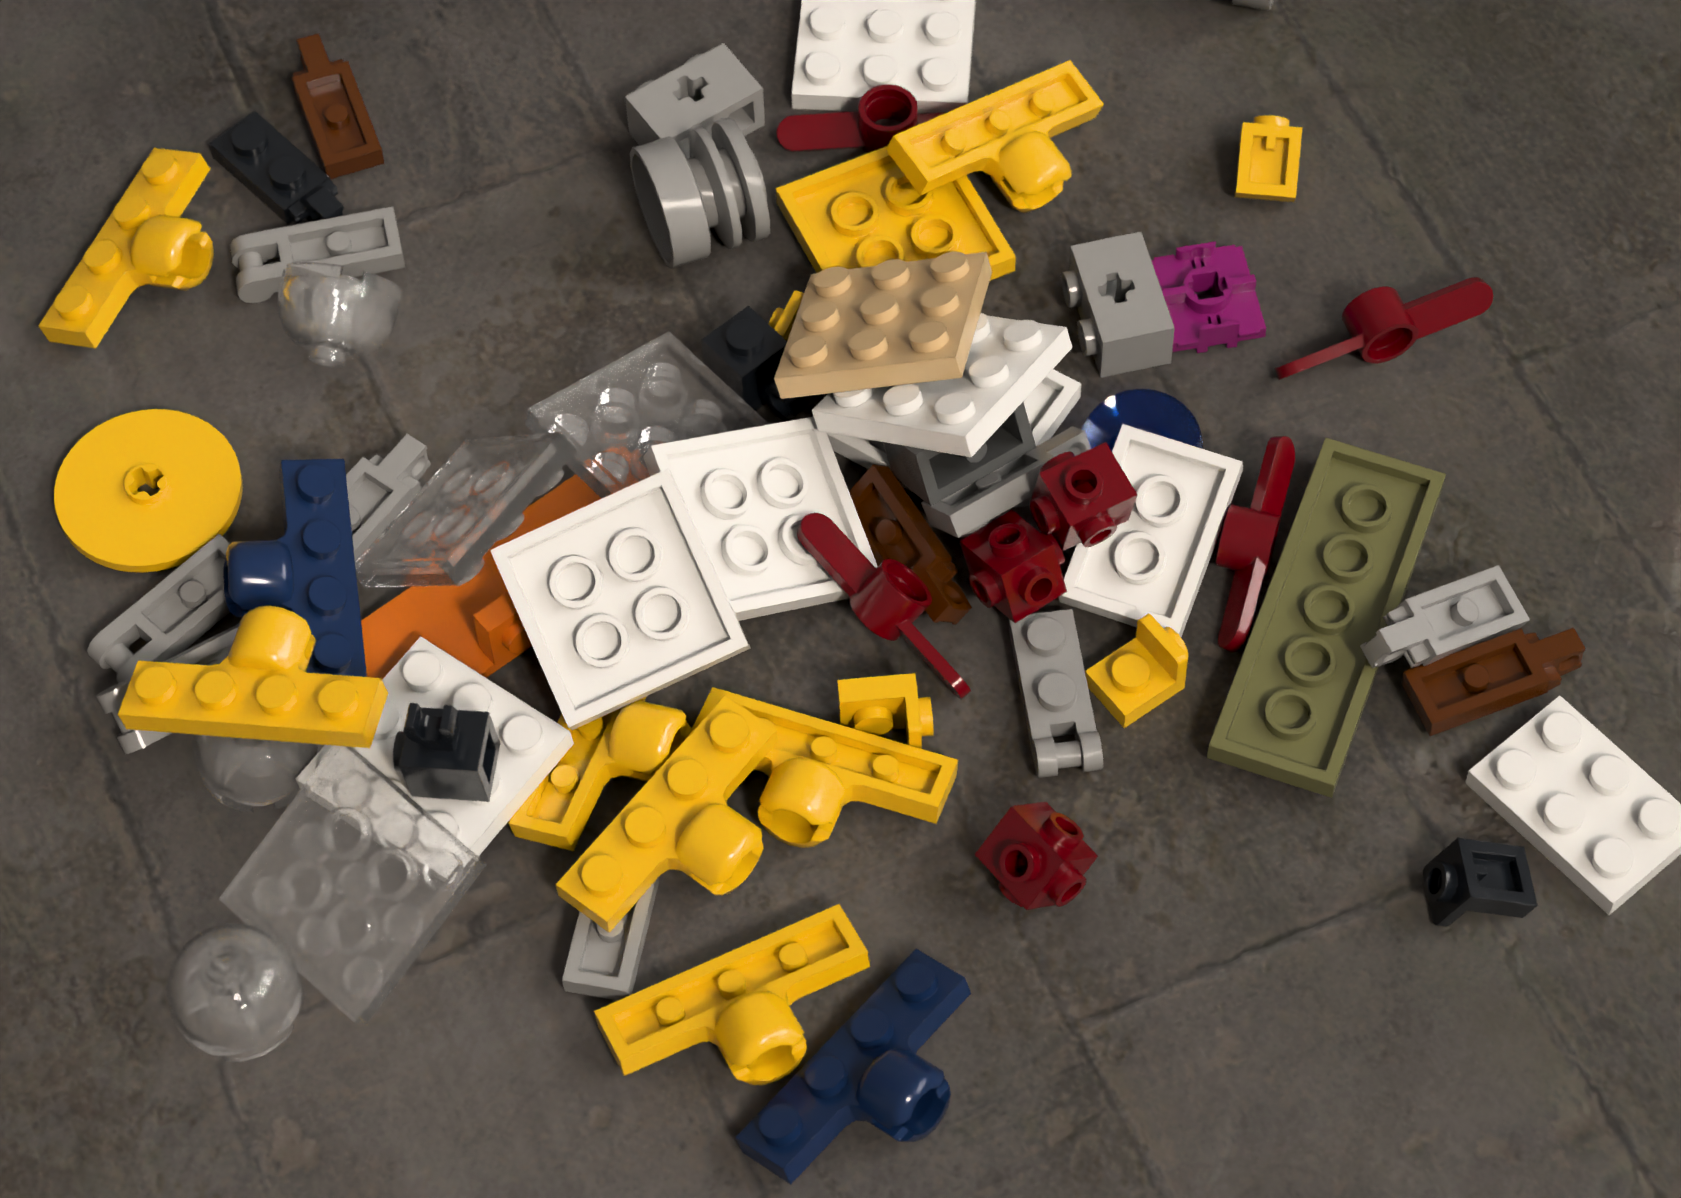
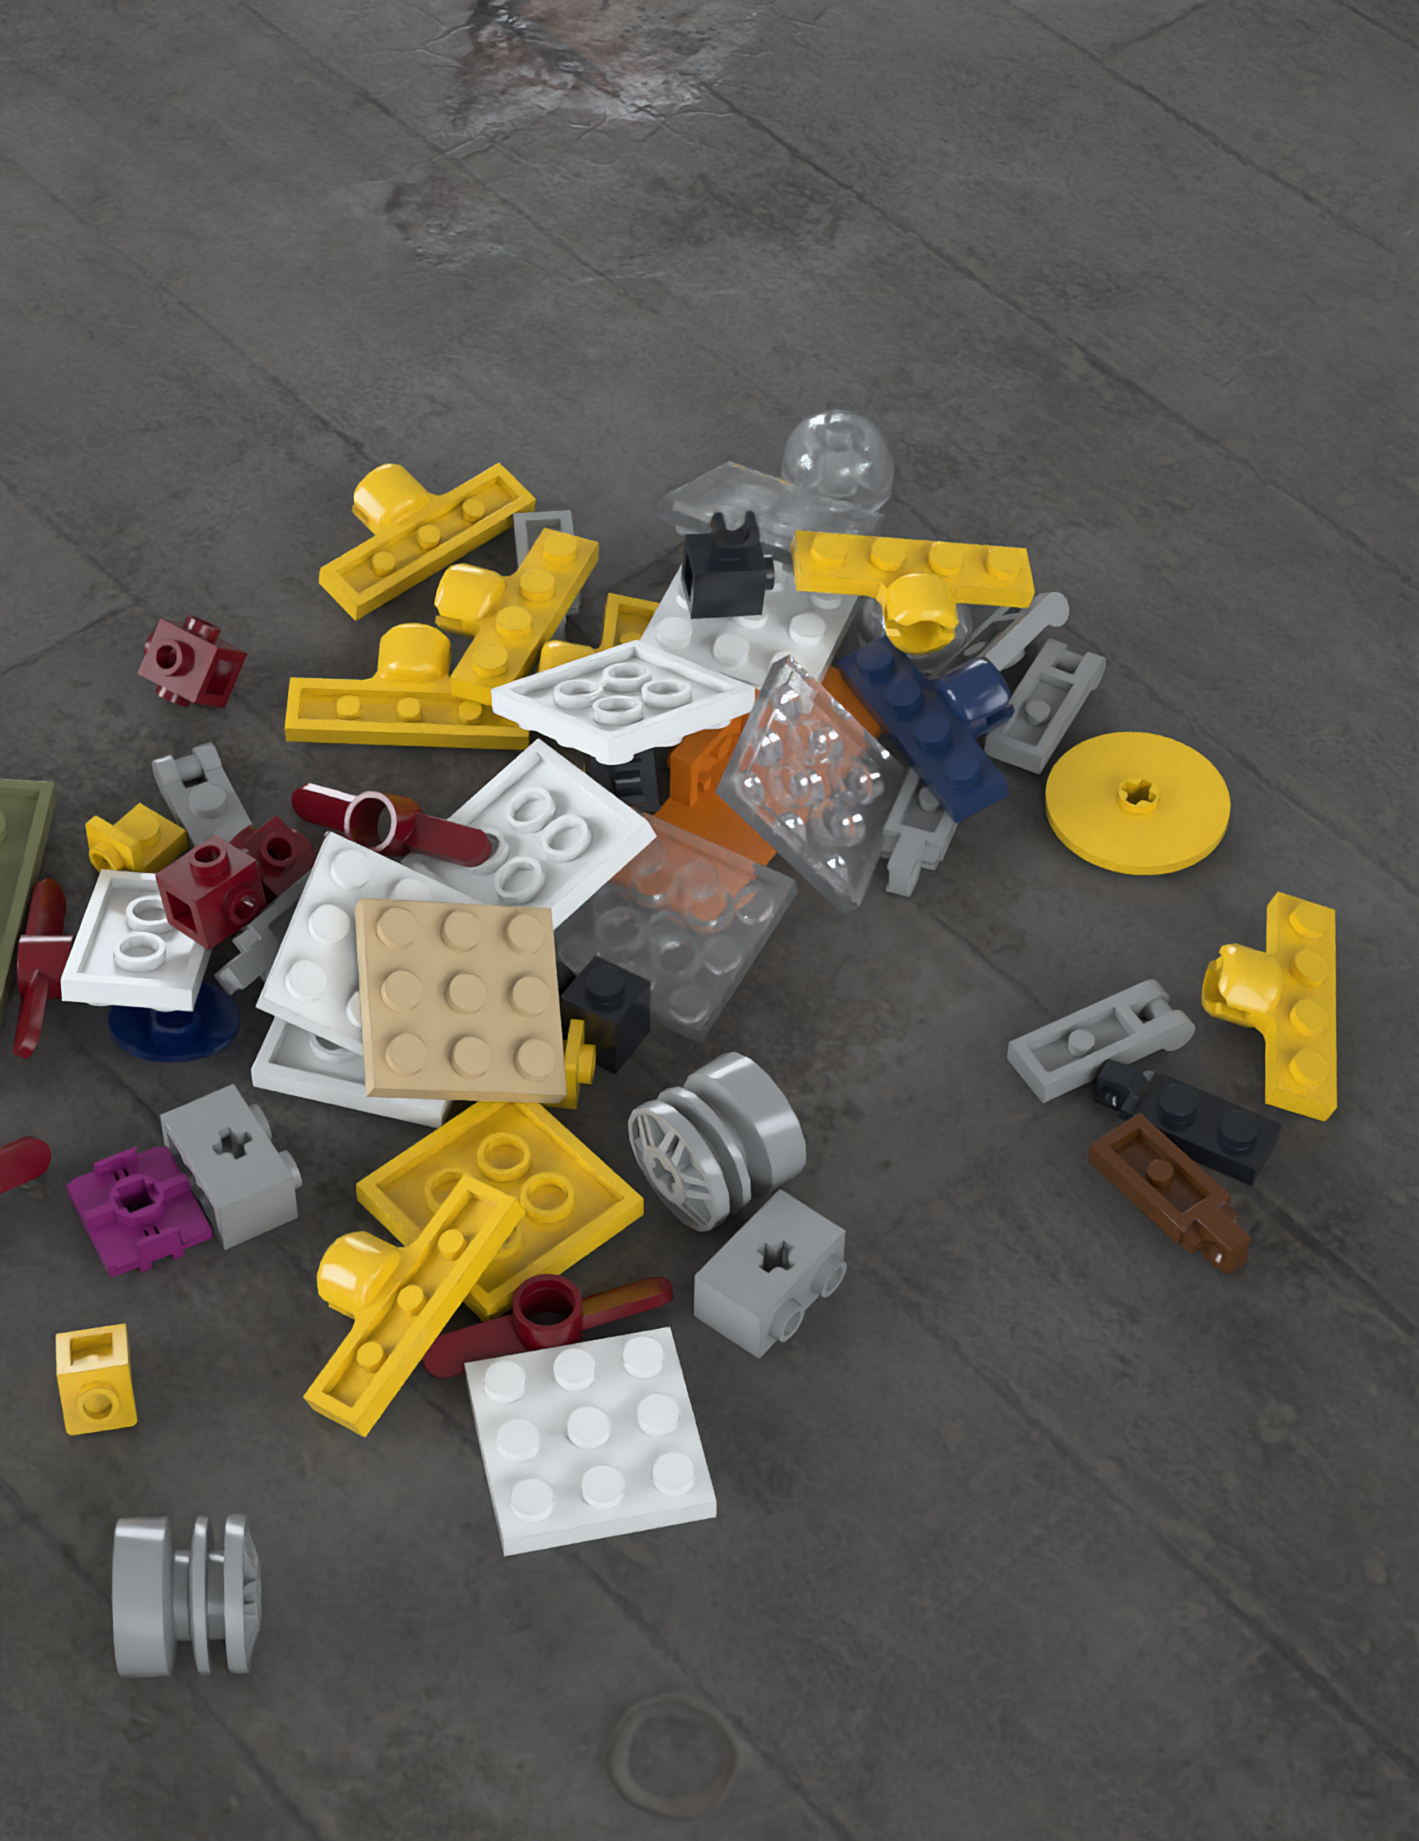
camera: 160 degrees right, 10 degrees down
(336, 312) = (1042, 964): clear cylinder -> none
(864, 1073) = (295, 514): dark blue plate -> none
(885, 704) = (364, 757): yellow bracket -> none

